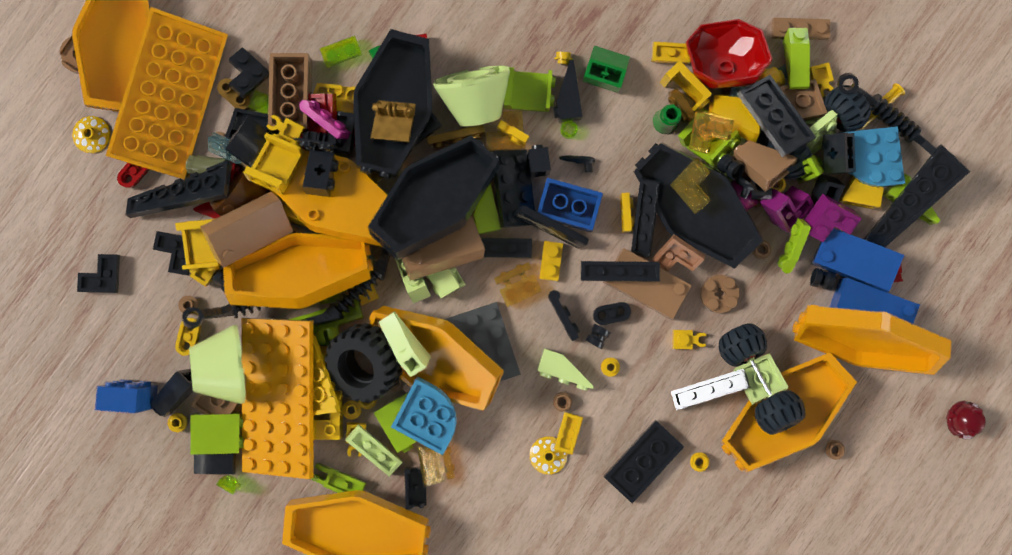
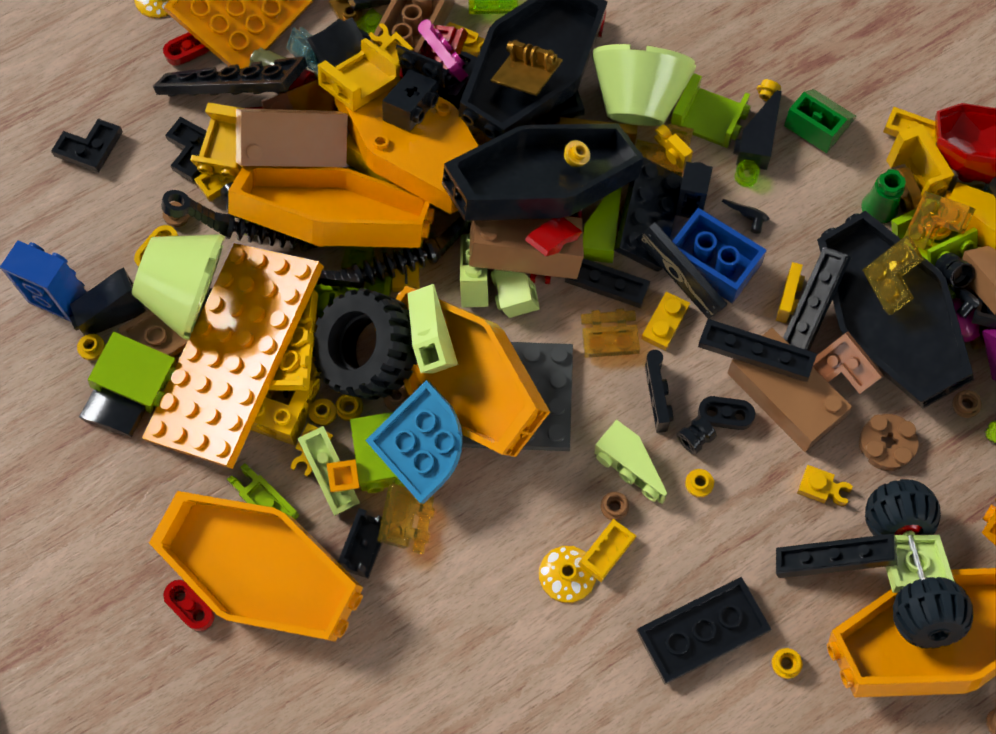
camera: 30 degrees right, 20 degrees down
(229, 484) = (118, 445): clear neon green plate -> none
(385, 453) = (343, 476): none -> light orange plate
(449, 178) = (576, 153): none -> yellow plate
(460, 245) = (553, 235): none -> red slope

